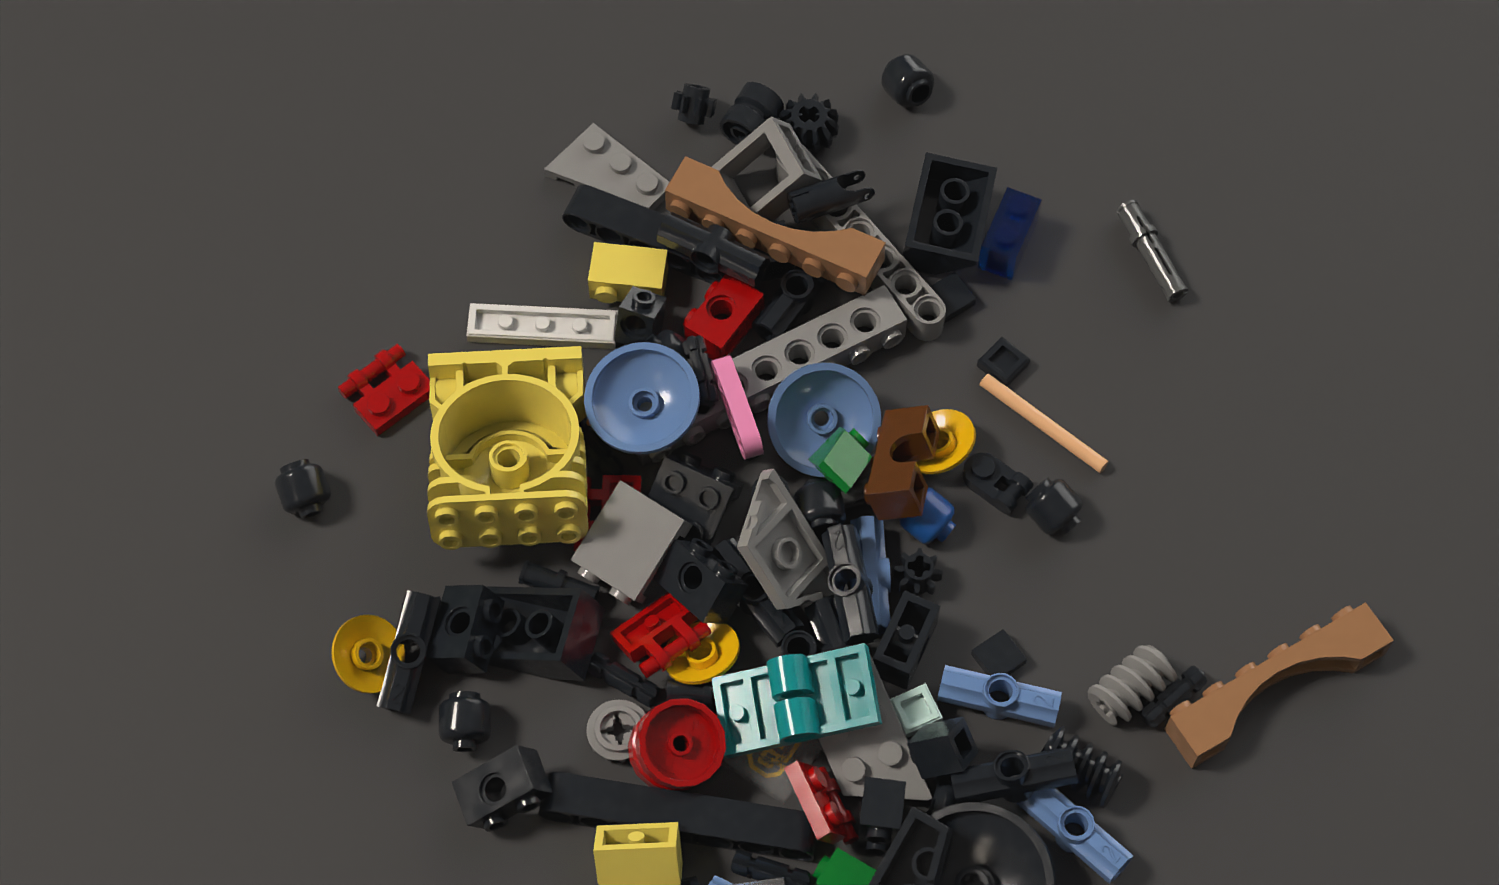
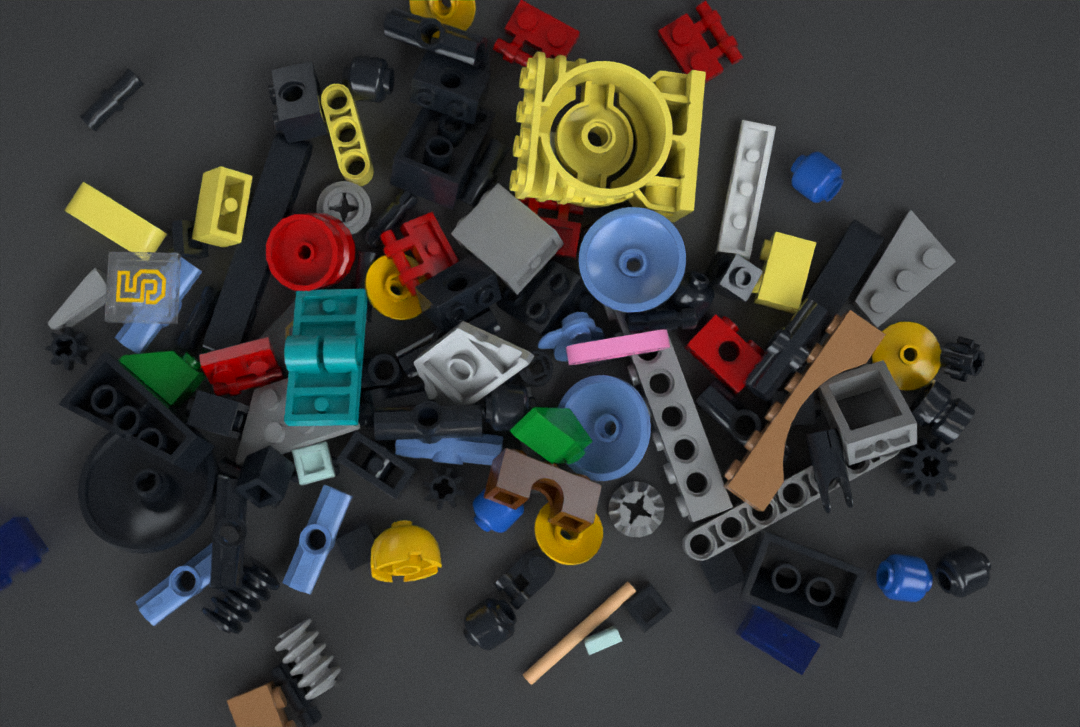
camera: 105 degrees right, 20 degrees up
(388, 551) = (537, 30): none -> red plate
(521, 256) = (816, 177): none -> blue head
(543, 719) = (344, 119): none -> light yellow beam
(692, 140) = (910, 335): none -> yellow dish
(724, 455) = (576, 329): none -> medium blue plate
(887, 390) = (631, 493): none -> light grey gear
(924, 129) = (904, 578): none -> blue head
(994, 599) = (404, 552): none -> yellow cylinder
(1046, 395) = (602, 640): none -> light aqua tile

